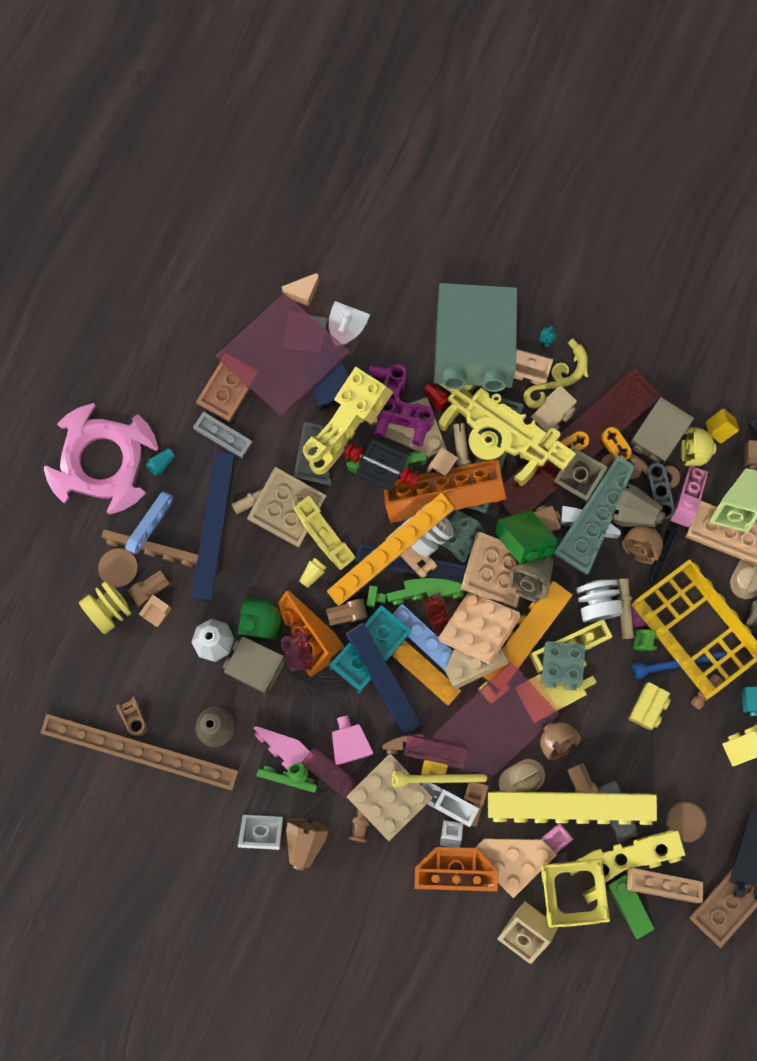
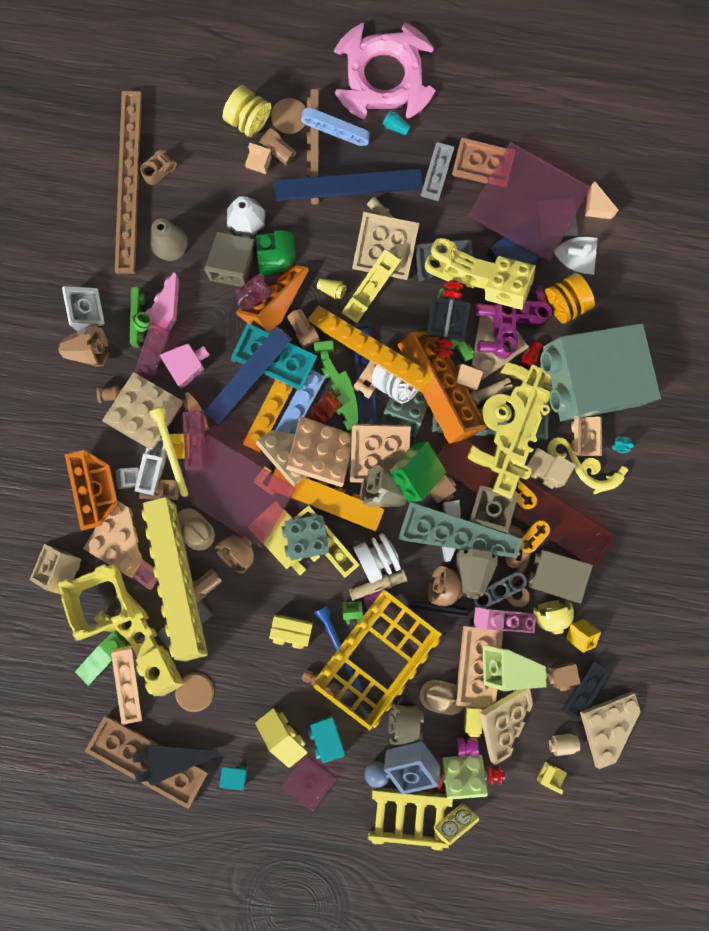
camera: 70 degrees right, 5 degrees up
(391, 343) = (570, 298): none -> light orange wheel

